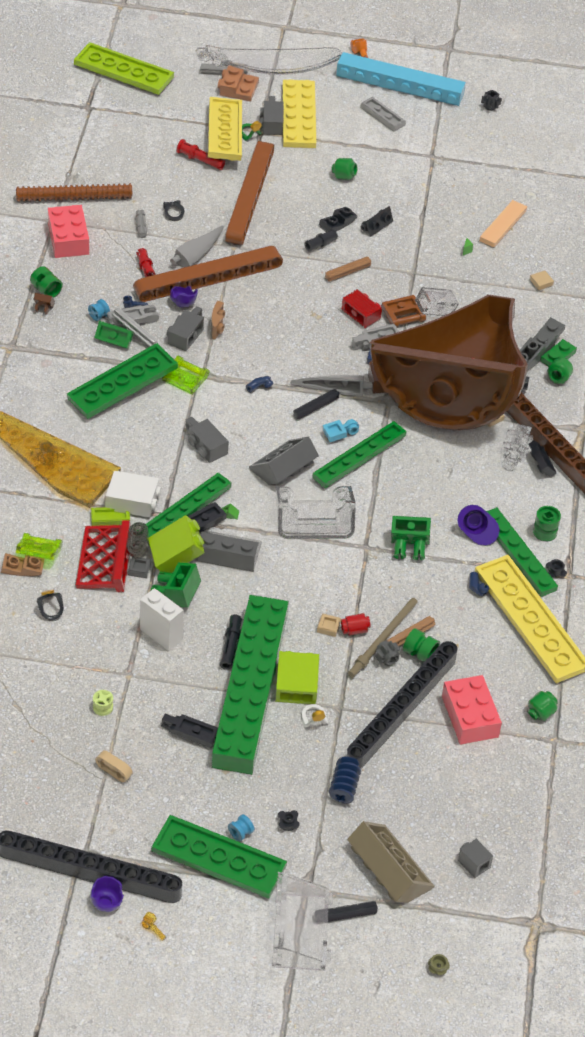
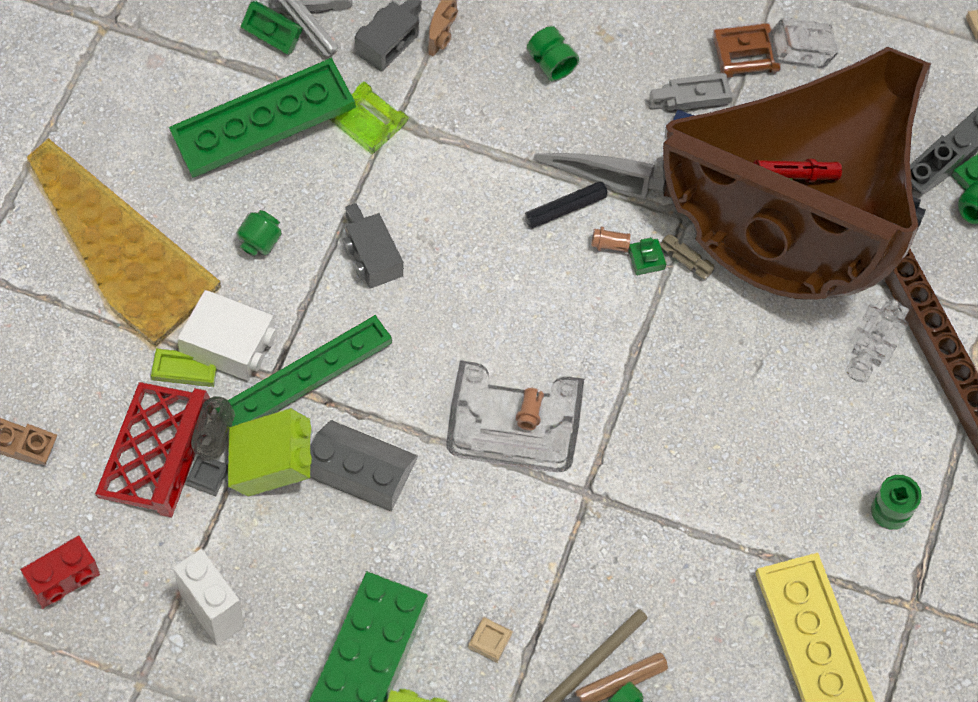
camera: 10 degrees right, 15 degrees up
(39, 547) = (48, 420): clear neon green plate -> none
(46, 453) = (104, 241): clear yellow gear -> none
(48, 593) = (43, 504): black piece -> none
(67, 623) = (60, 572): none -> red brick
(136, 440) = (259, 233): none -> green head
(180, 584) = (262, 529): green brick -> none
(208, 516) = (334, 398): black plate -> none
(231, 511) = (379, 390): bright green piece -> none
(232, 635) = (325, 636): black pin -> none
(257, 382) = (483, 148): dark blue arm -> none
(285, 461) = (489, 308): dark grey slope -> none
(288, 326) = (554, 56): none -> green wheel
(322, 509) = (529, 416): none -> nougat pin
(337, 431) = (586, 262): medium azure plate -> none
(343, 417) = (610, 240): none -> nougat pin
(355, 624) = (533, 649): red brick -> none
(359, 454) = (613, 314): green plate -> none
(361, 308) = (679, 35): red brick -> none
(370, 423) = (647, 256): none -> green tile
(384, 416) = (687, 256): none -> dark tan axle
(410, 531) = (664, 481): green brick -> none
(475, 586) = (751, 603): dark blue arm -> none
(478, 525) = (780, 487): dark purple piece -> none
(523, 556) = (839, 546): green plate -> none
(540, 455) = (915, 369): black plate -> none
(556, 568) = (897, 582): black plate -> none

